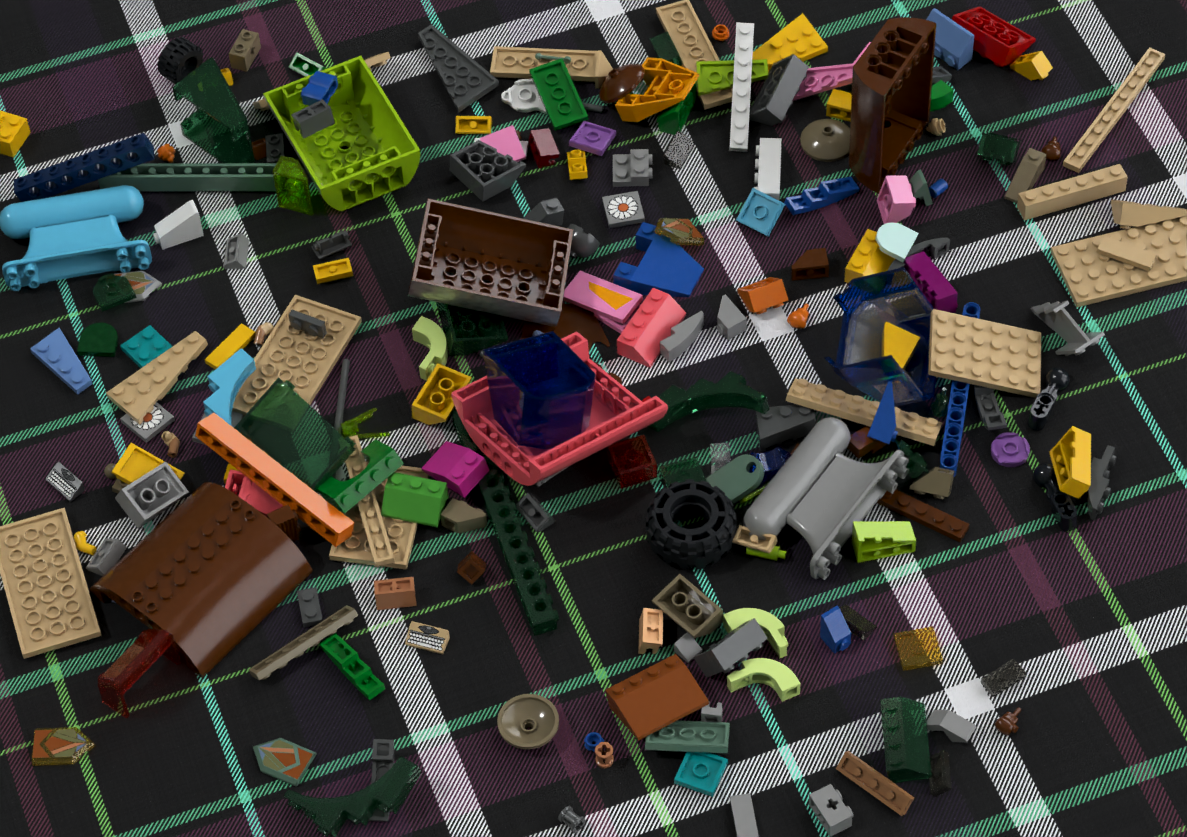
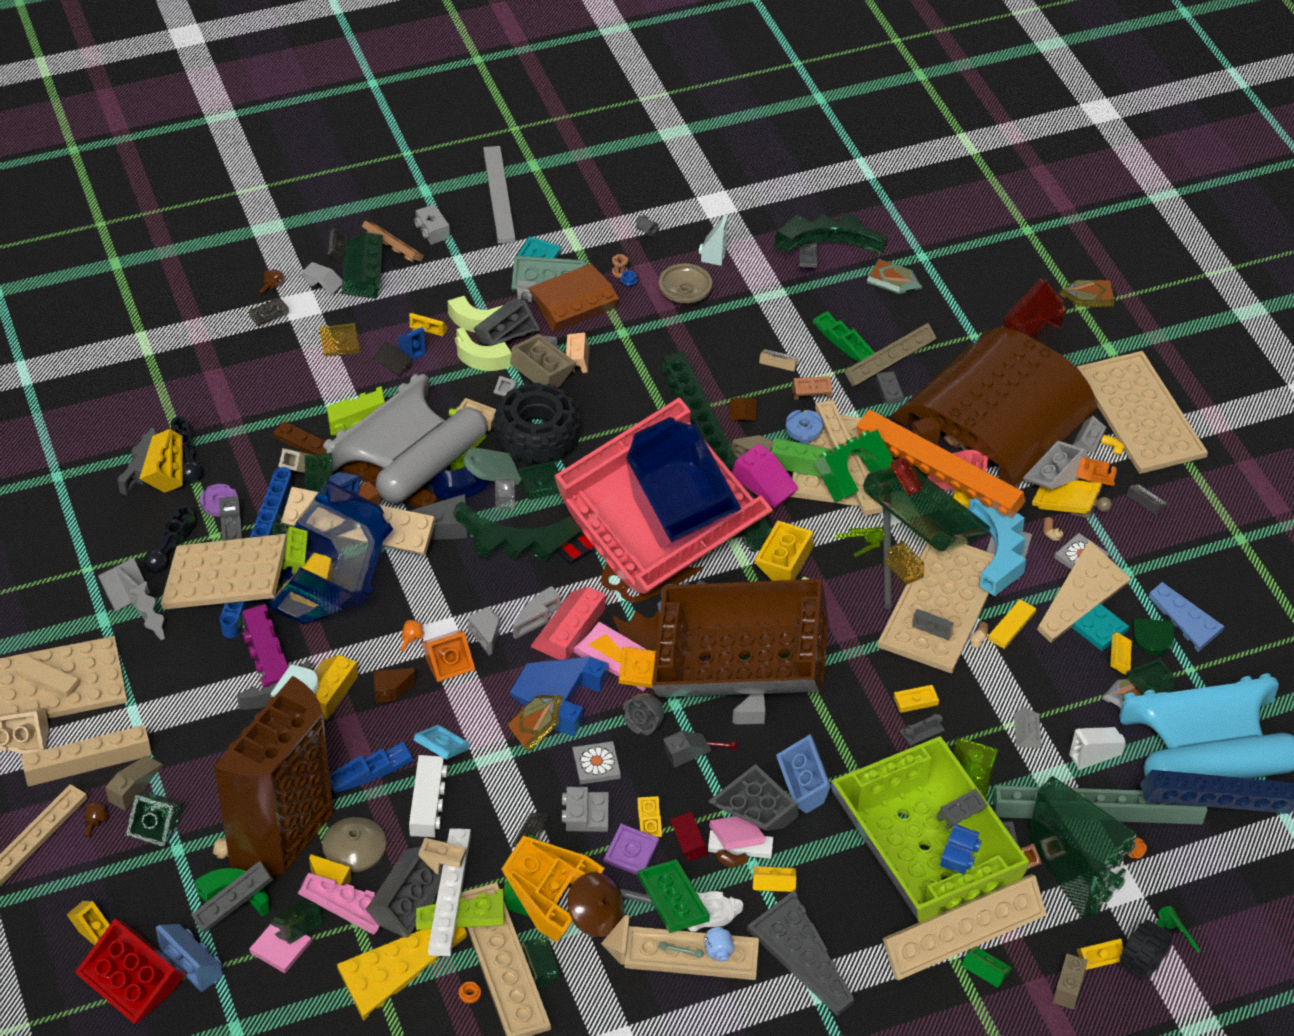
camera: 175 degrees right, 5 degrees down
(107, 493) = (1096, 471): none -> orange hinge
(134, 318) = (1121, 653): none -> yellow tile
(152, 101) = (1170, 920): none -> green plant
(314, 478) = (906, 475): none -> clear red tile
(324, 387) = (905, 563): none -> clear yellow hinge
(411, 545) = (804, 434): none -> medium blue plate
(442, 181) = (804, 774): none -> medium blue slope
(491, 773) = (714, 246): none -> light aqua slope
(522, 54) = (718, 944): none -> light blue head
(584, 282) = (636, 667): none -> light orange tile
(727, 594) = (504, 385): none -> light grey slope
(751, 102) = (437, 853): none -> tan slope
(820, 668) = (430, 325): none -> yellow slope
(919, 366) = (295, 548): none -> lime hinge

